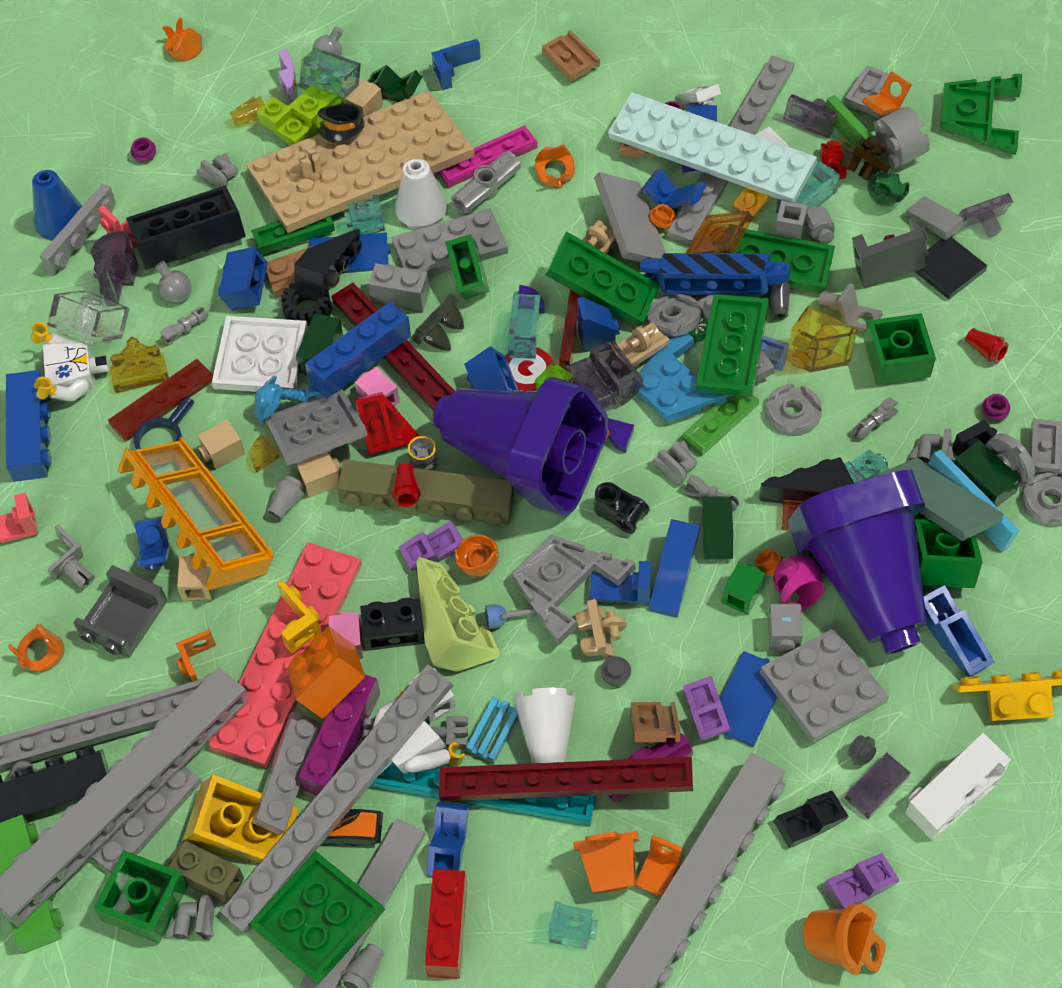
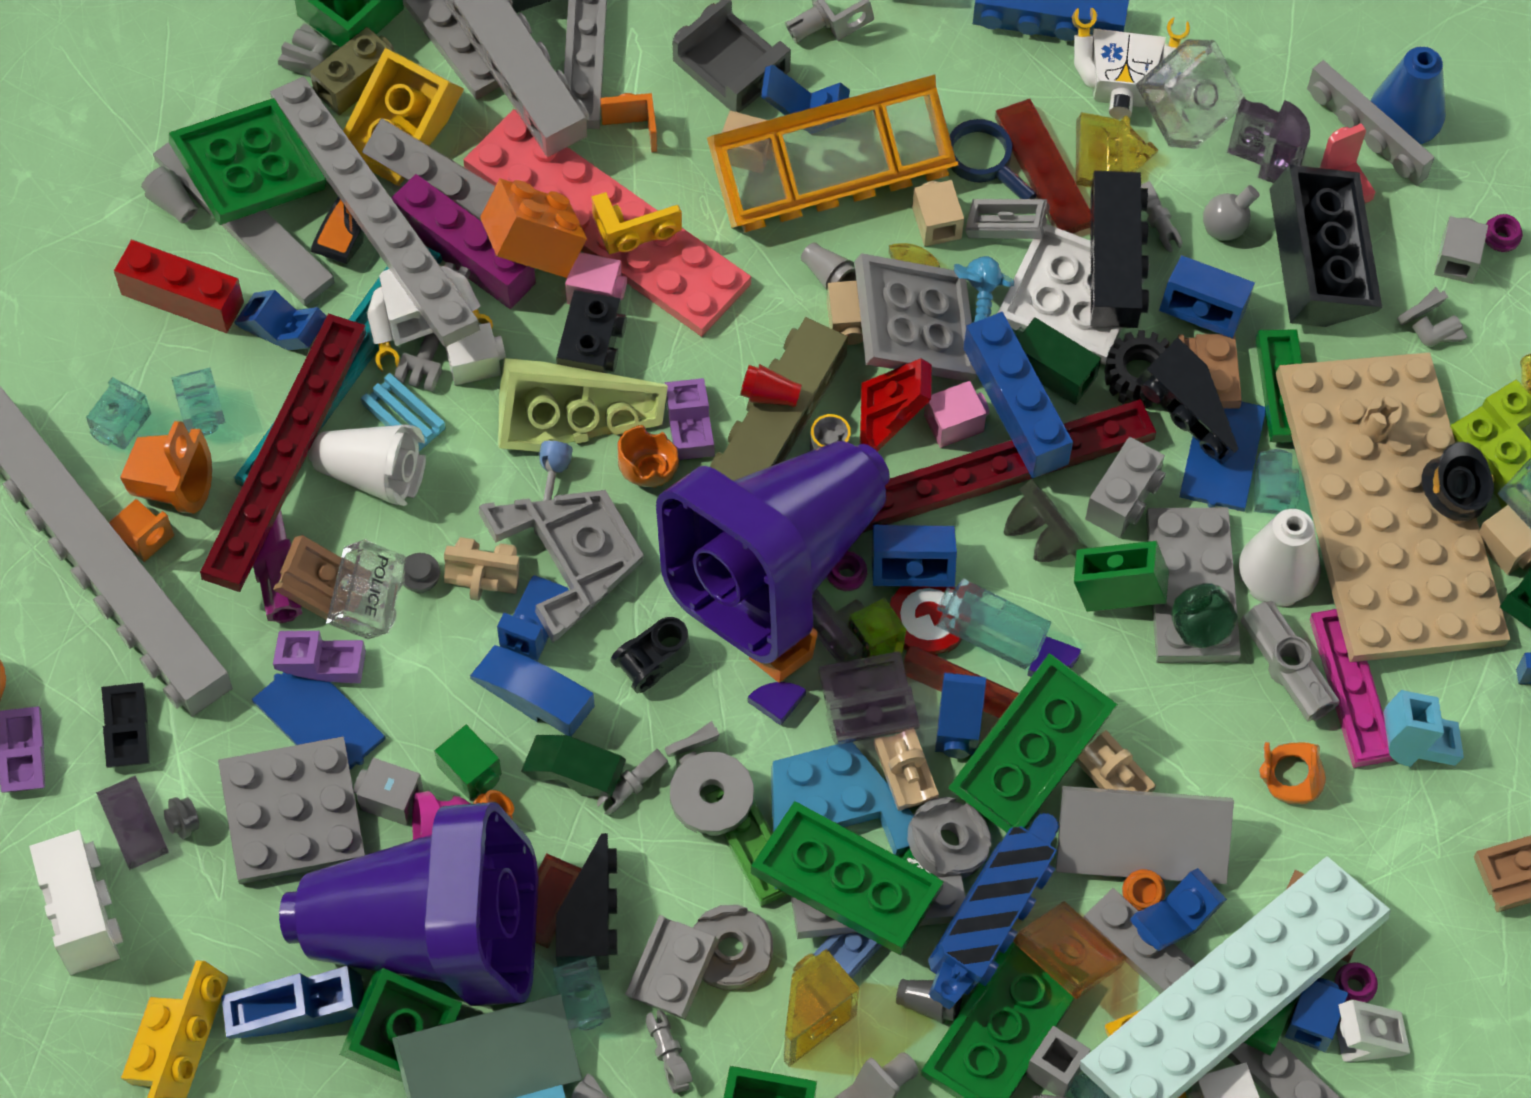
camera: 105 degrees right, 5 degrees up
(163, 164) = (1461, 249): none -> light grey brick
(214, 404) = (1006, 224): none -> light grey tile
(226, 327) = (1117, 249): none -> black brick
(479, 218) = (1203, 615): none -> clear green hair
(510, 109) = (1419, 732): none -> medium azure brick
(541, 856) = (198, 401): none -> clear light blue brick
(649, 689) = (366, 589): none -> clear brick
(708, 428) = (705, 770): none -> light grey tile
(824, 430) = (672, 967): none -> light grey plate

